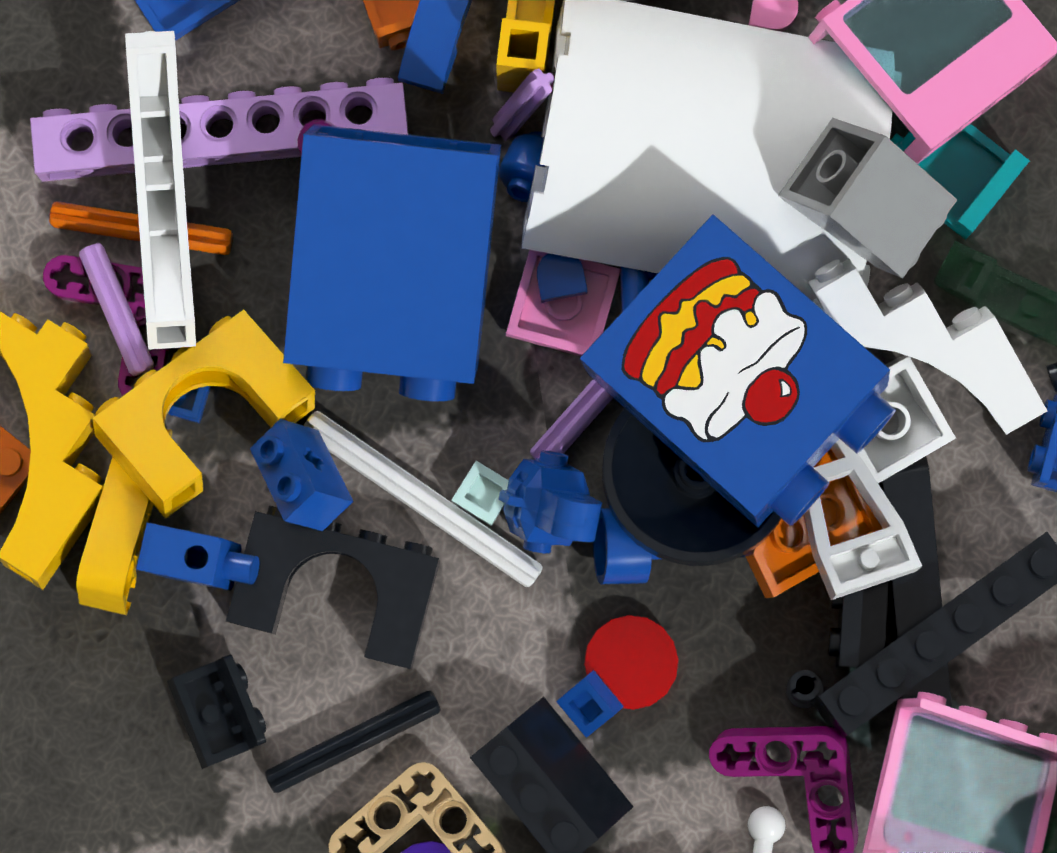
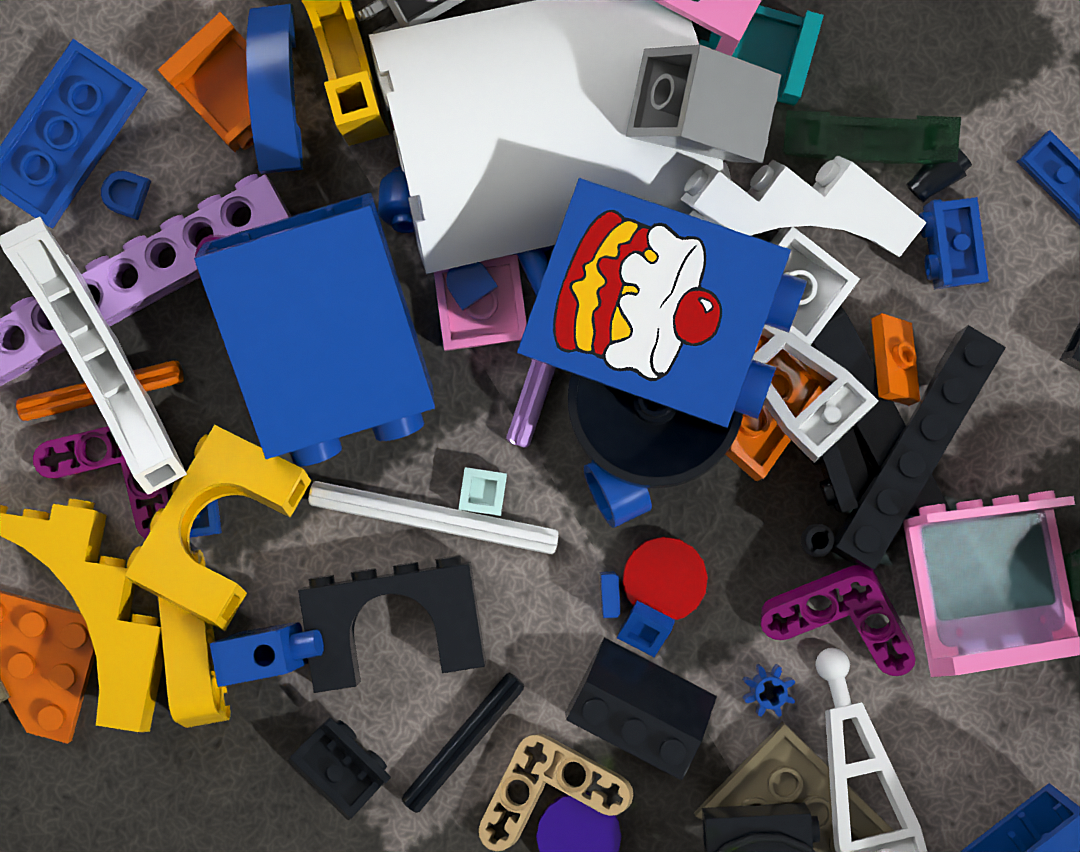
camera: 20 degrees left, 5 degrees up
(116, 309) = (107, 469): lavender axle -> none
(252, 43) = (125, 193): none -> blue tile
(301, 475) = (323, 545): blue brick -> none
(522, 104) = (374, 149): lavender axle -> none
(549, 503) = (543, 478): blue piece -> none
(568, 652) = (610, 594): none -> blue tile
(699, 831) = (780, 693): none -> blue gear
(959, 537) = (895, 359): none -> orange plate

